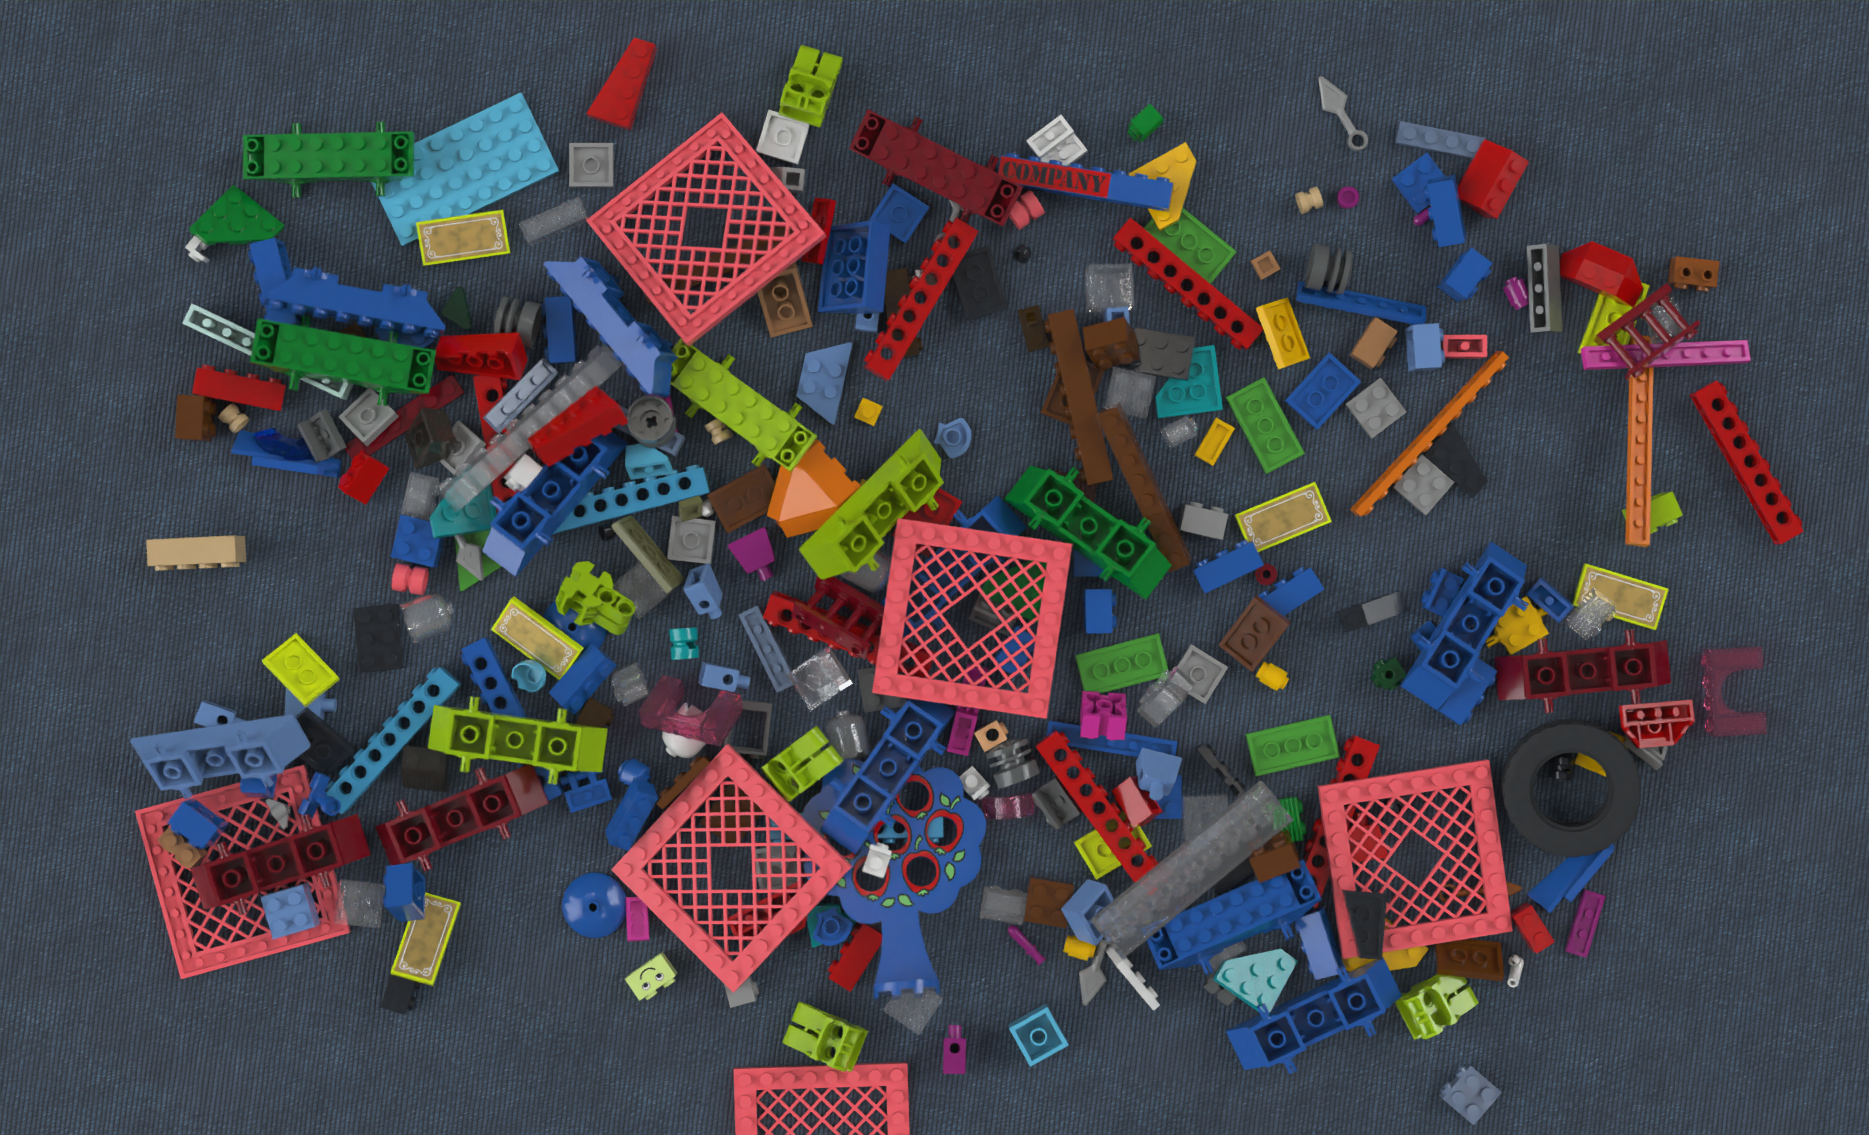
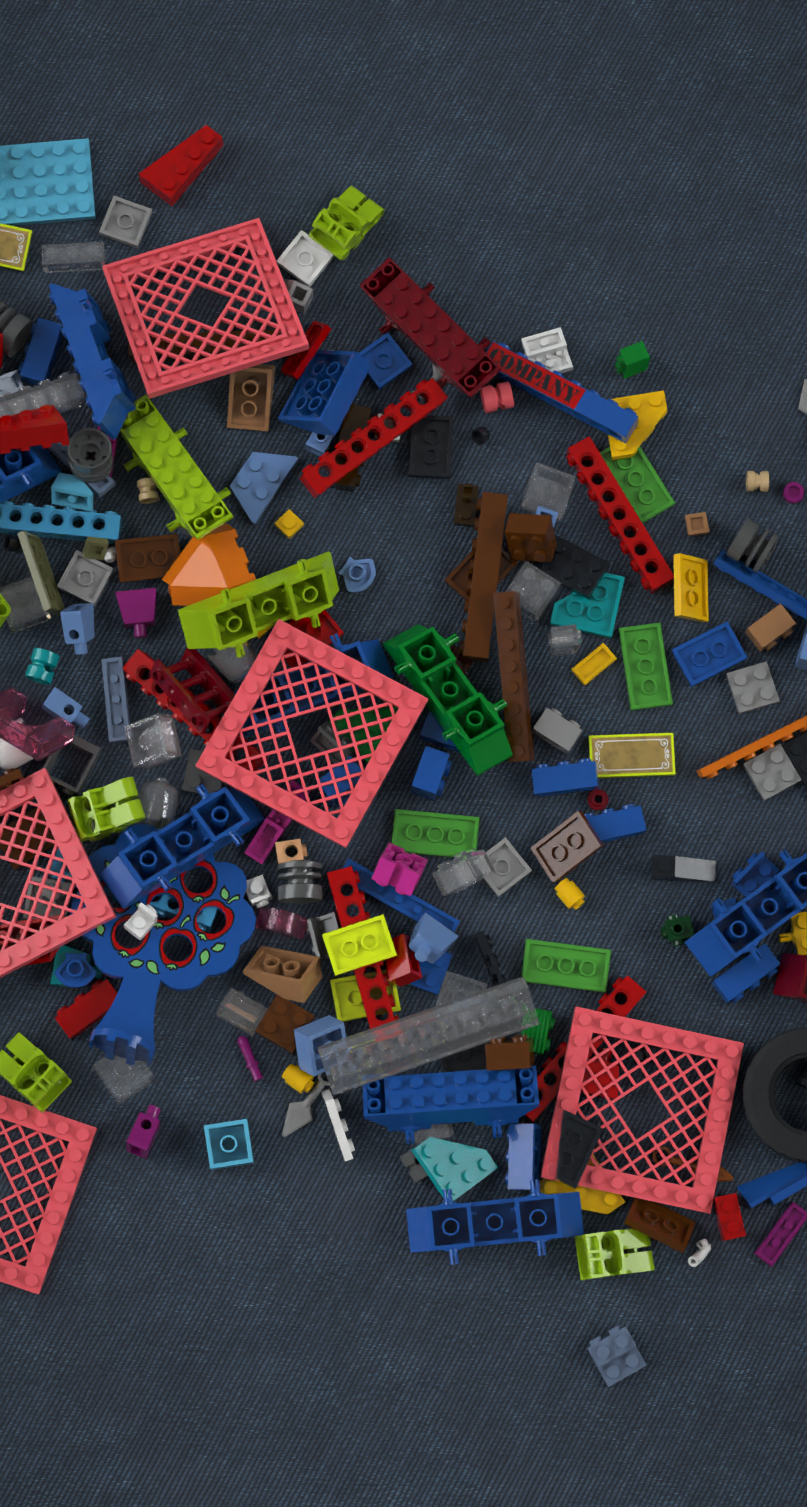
camera: 15 degrees right, 10 degrees down
(1029, 854) = (285, 972): none -> medium nougat slope
(1092, 804) = (359, 945): none -> neon yellow tile

